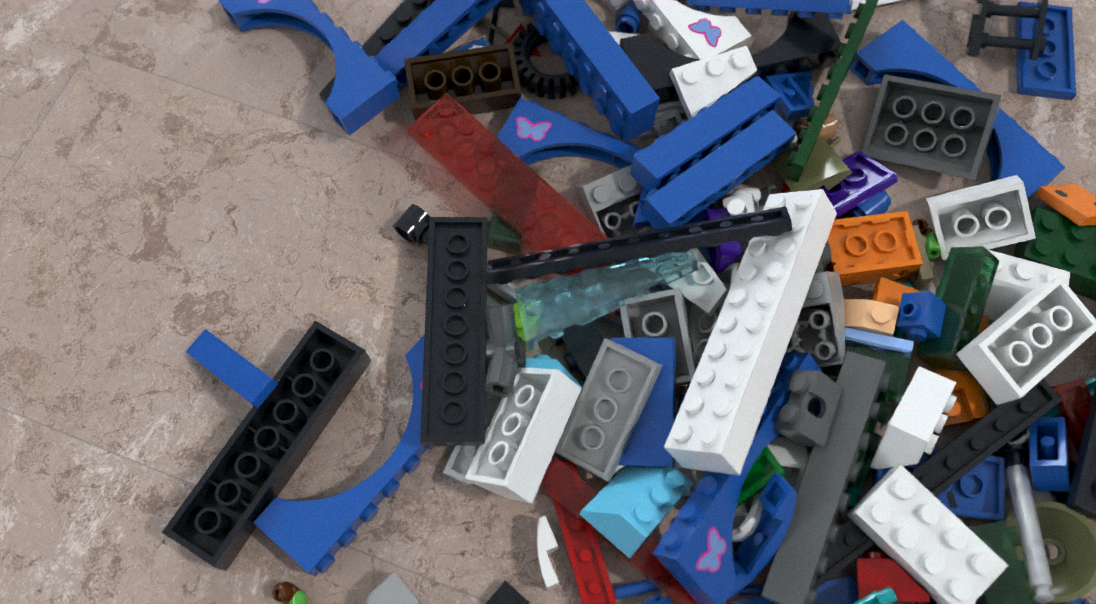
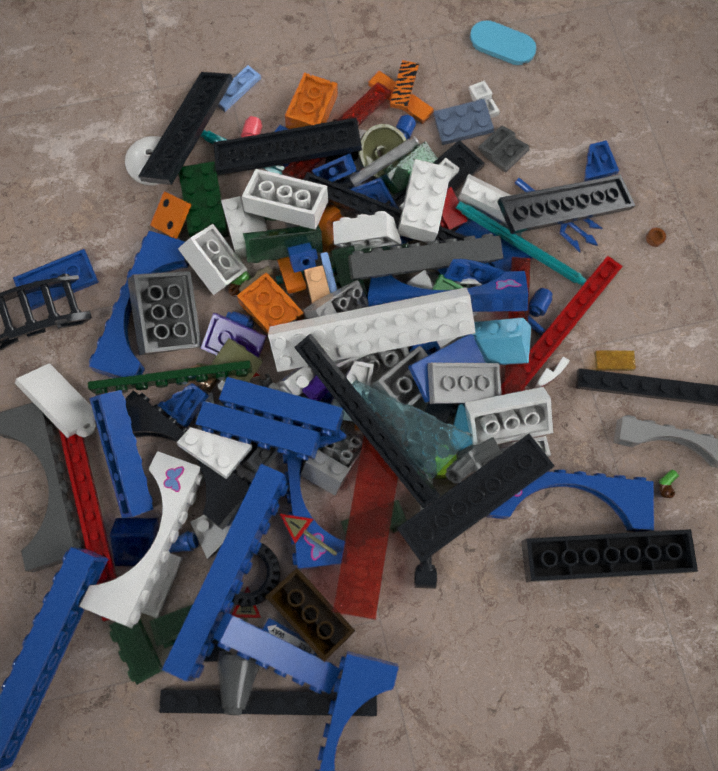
camera: 130 degrees left, 5 degrees up
(232, 368) = (589, 613): blue tile -> none
(565, 120) = (297, 527): none -> piece
(797, 417) = (391, 285): dark grey brick -> none

